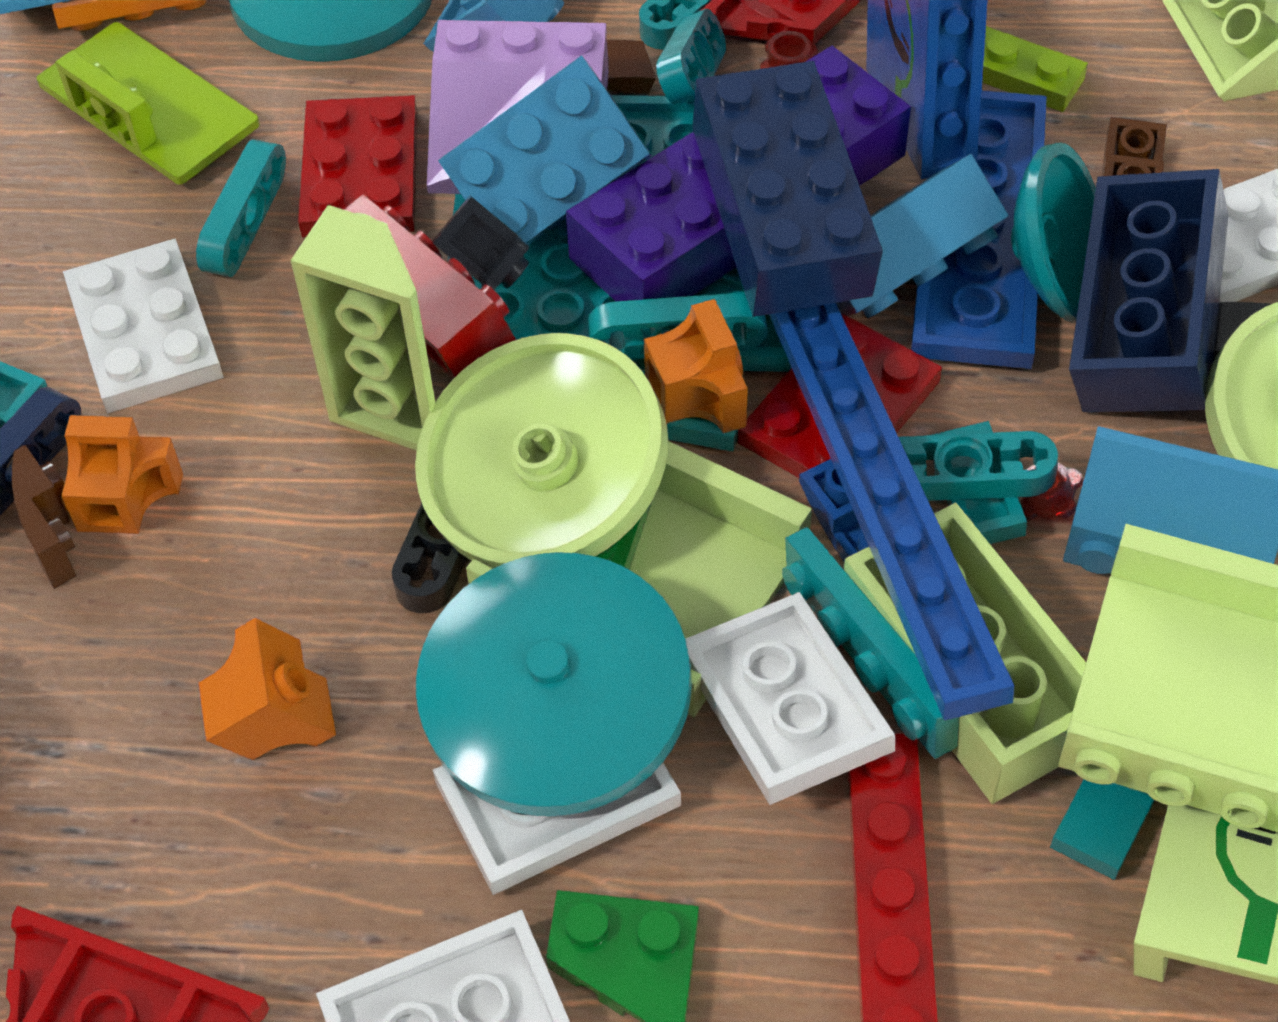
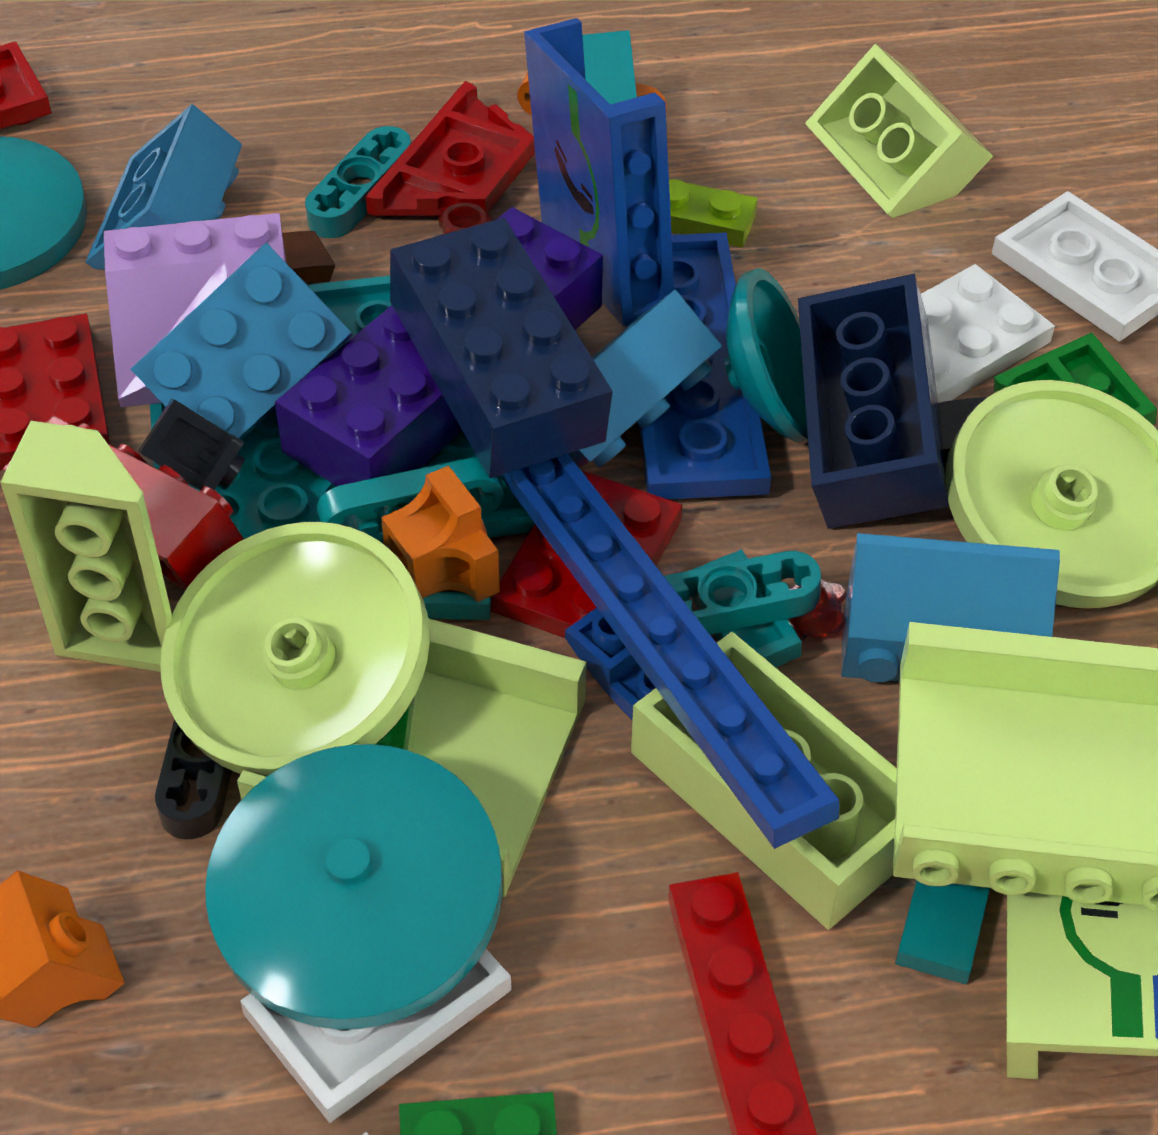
camera: 15 degrees left, 5 degrees down
(690, 54) = (367, 239): teal beam -> none
(787, 698) = (602, 858): white plate -> none
(877, 649) = (673, 785): teal plate -> none
(1133, 147) = (818, 270): reddish brown slope -> none

